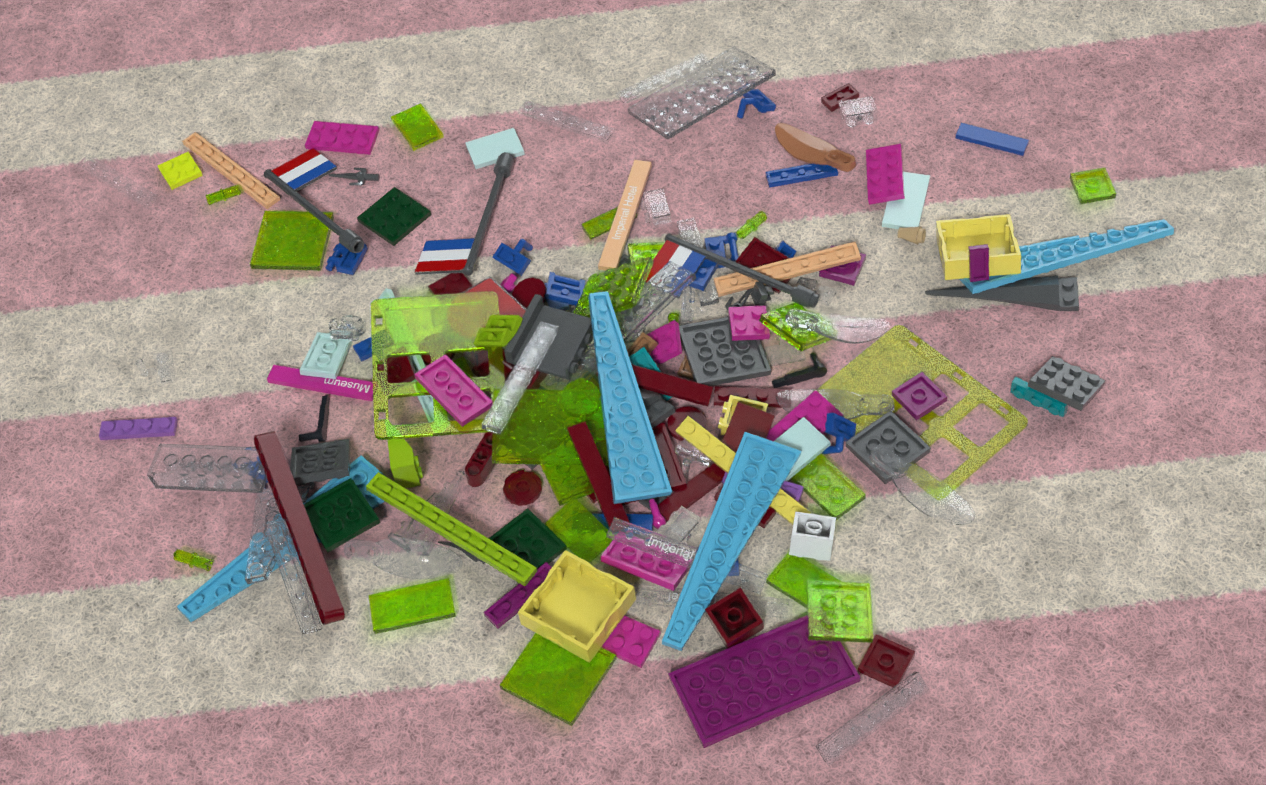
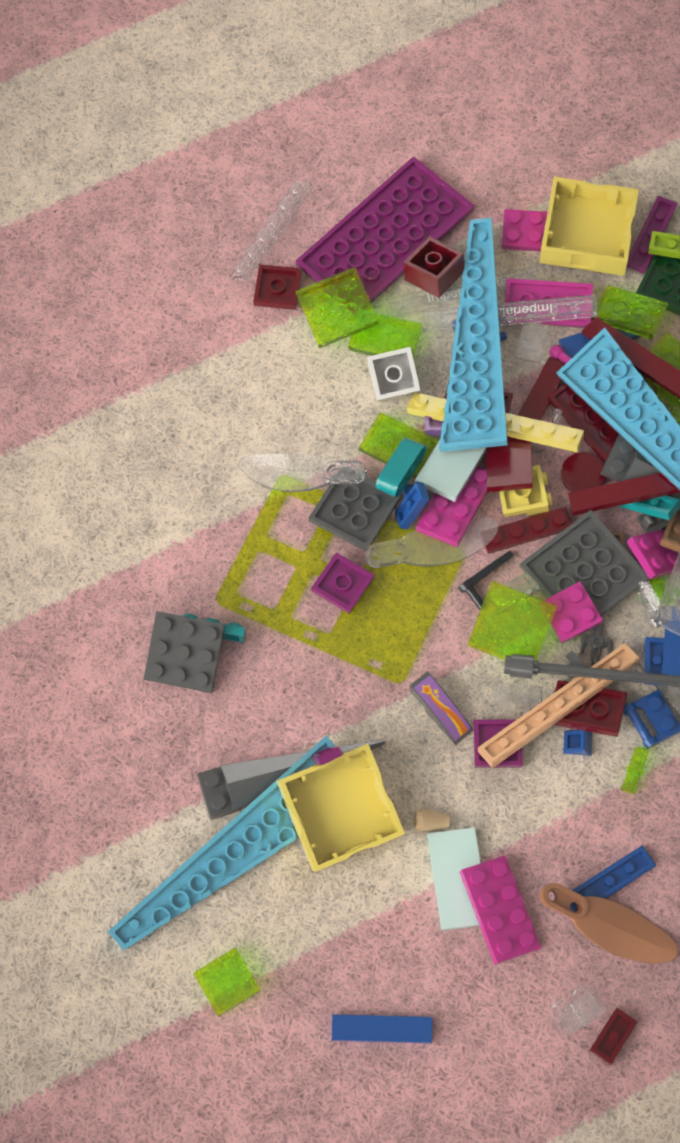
camera: 155 degrees right, 15 degrees up
(556, 678) = (574, 159): clear neon green plate -> none
(838, 327) = (467, 640): clear plant -> none
(838, 456) = (400, 467): none -> teal beam
(877, 297) = (440, 708): none -> slope

